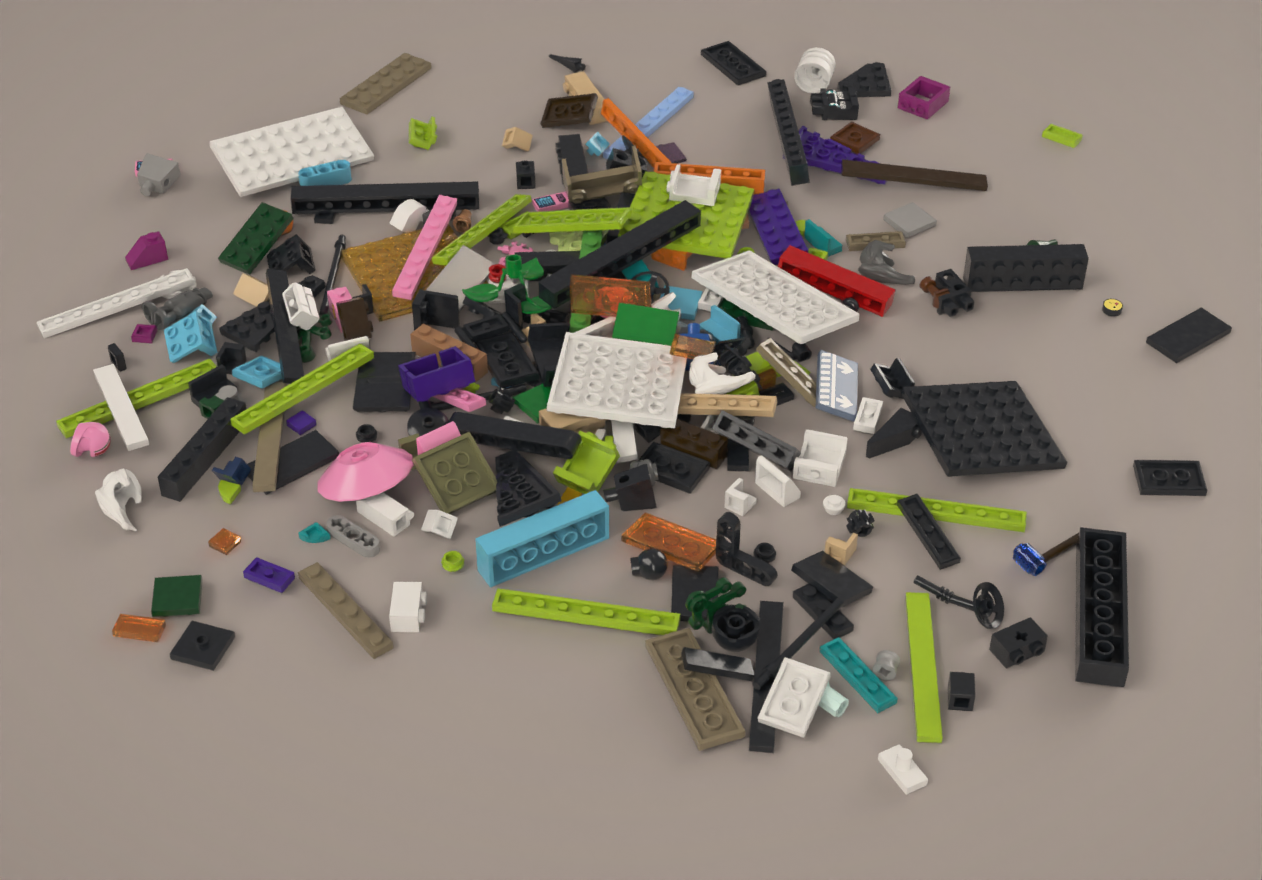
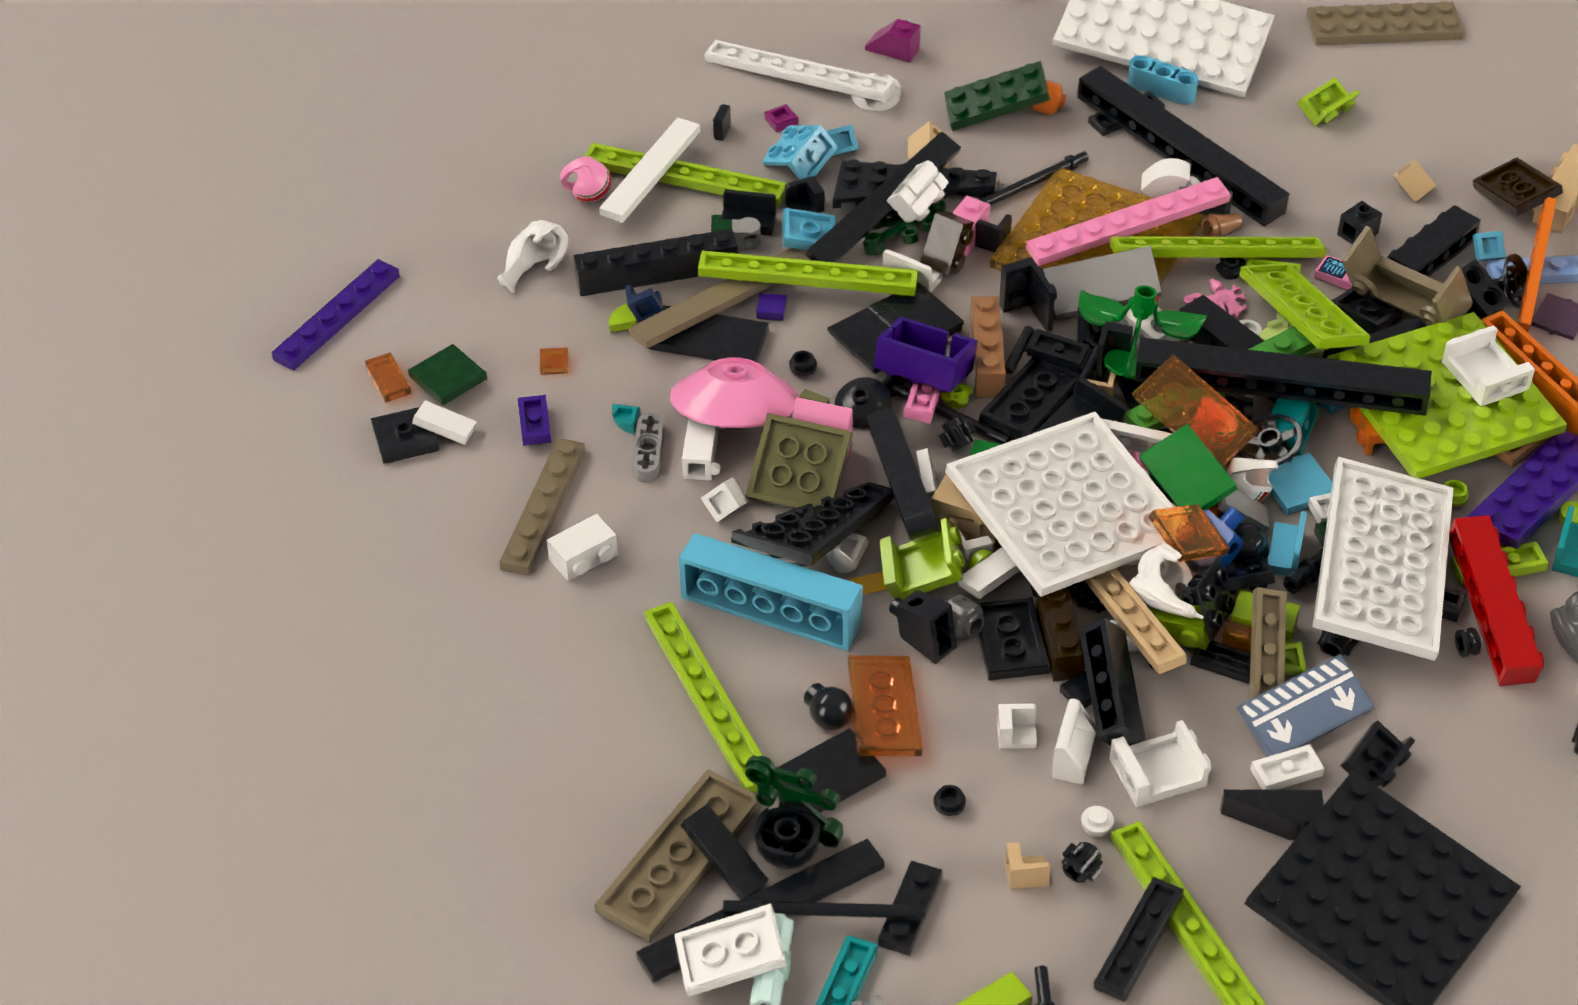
camera: 55 degrees right, 5 degrees up
(45, 626) = (335, 314): none -> dark purple plate
(176, 307) = (839, 112): dark grey piece -> none
(220, 618) = (444, 422): none -> white tile
(290, 253) = (1009, 138): black bracket -> none
(452, 561) = (679, 541): lime plate -> none
(733, 559) = (909, 774): black beam -> none
(831, 578) = (965, 886): black tile -> none

